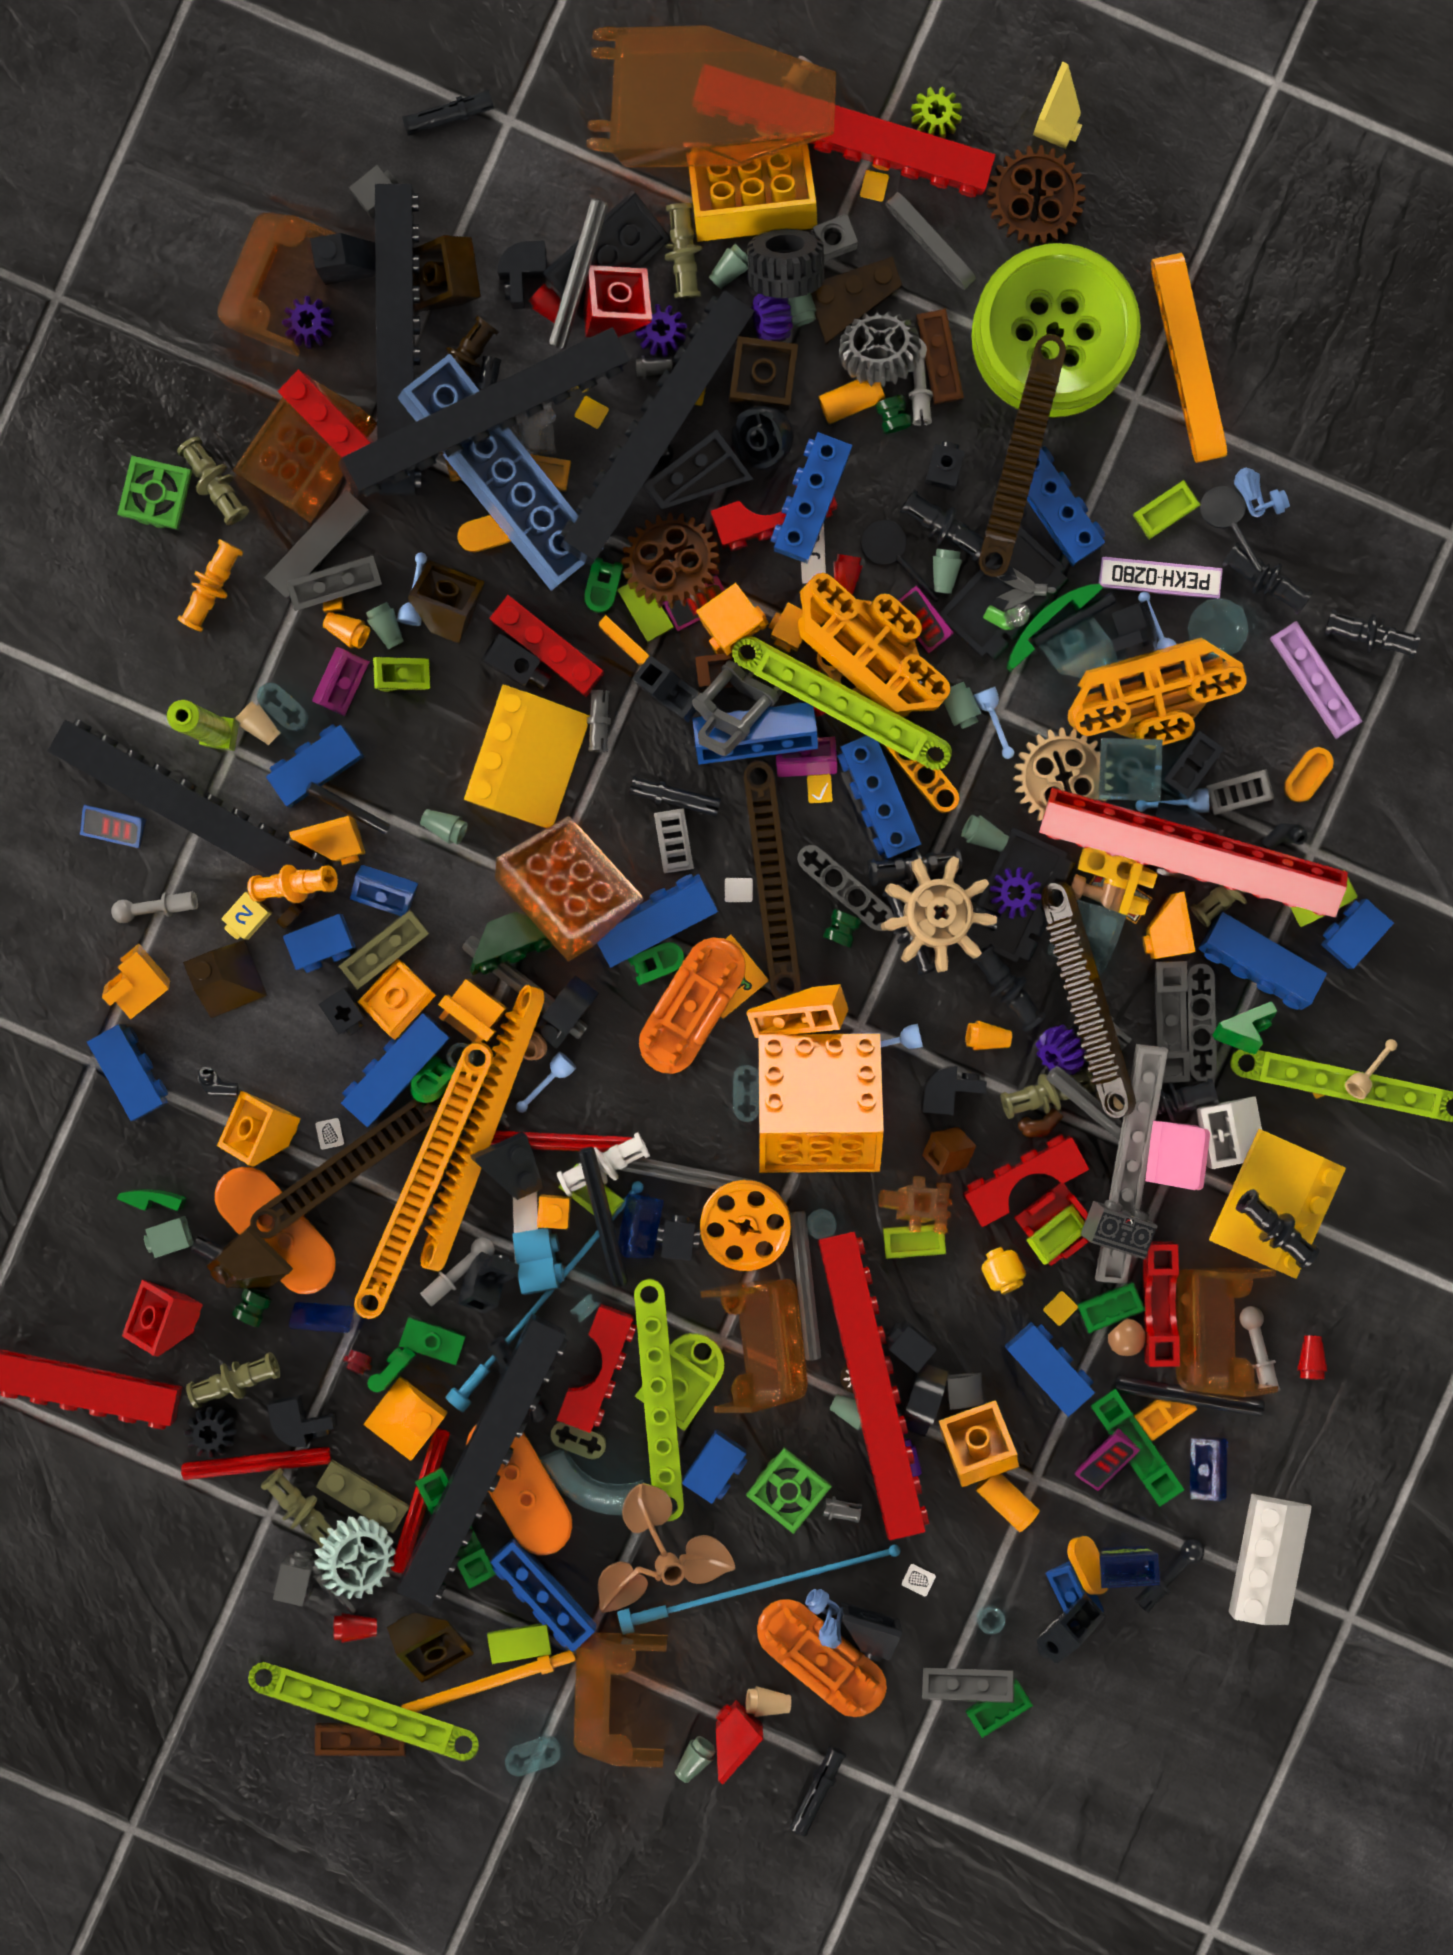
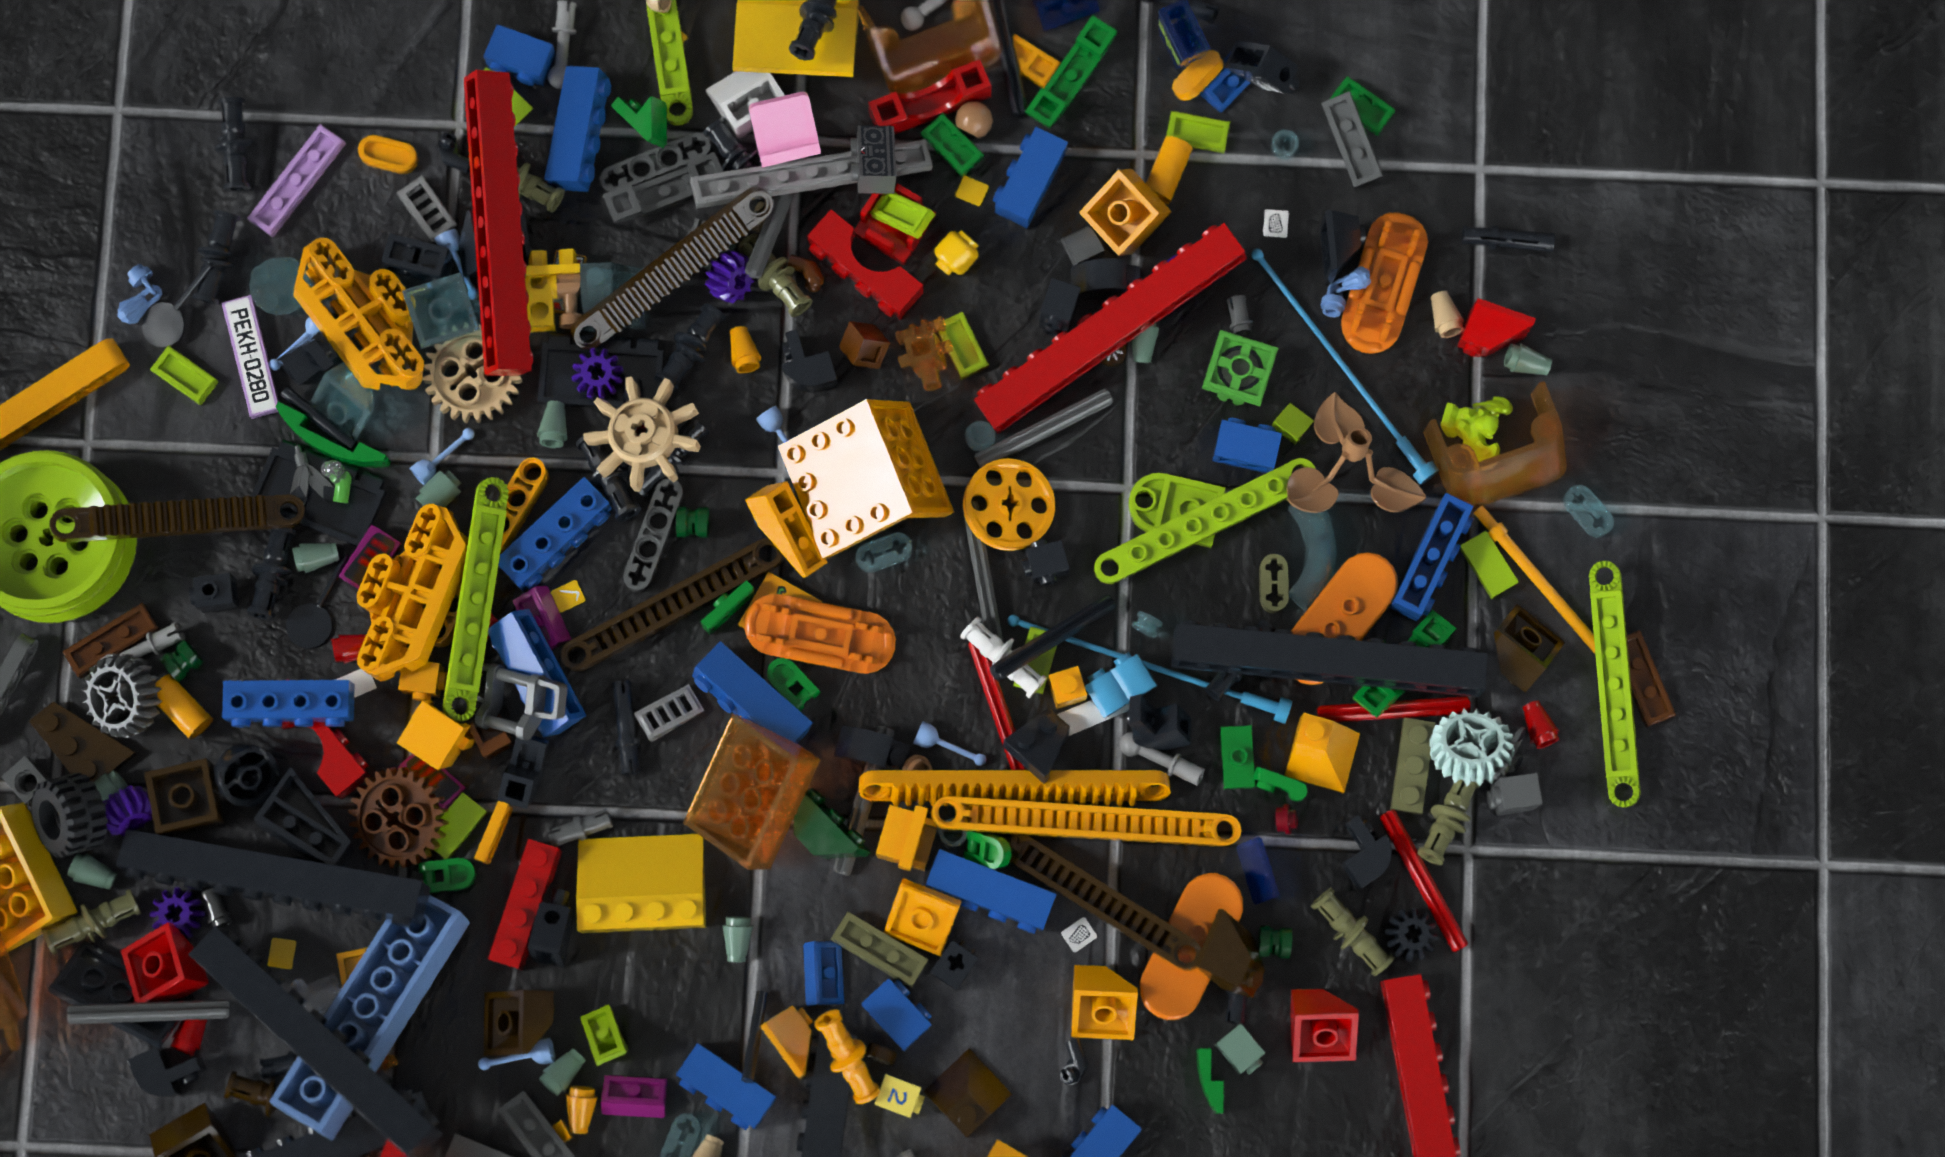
camera: 115 degrees left, 10 degrees down
(481, 534) = (439, 1012): light orange tile -> none
(583, 1403) = (1238, 589): red arch -> none
(640, 1226) = (1048, 603): clear blue slope -> none
(650, 1688) = (1476, 424): none -> lime animal
(721, 1517) = (1292, 423): none -> lime slope
(738, 889) = (693, 635): white sticker -> none
(751, 930) = (727, 606): none -> green plate
(769, 1341) = (1111, 440): clear orange windscreen -> none
(1034, 1543) = (1199, 131): none -> lime tile
(1062, 512) = (223, 464): blue brick -> none
(1107, 1460) = (1094, 95): slope -> none
(1170, 929) = (577, 220): light orange slope -> none
(1369, 986) = (564, 27): none -> light grey pin

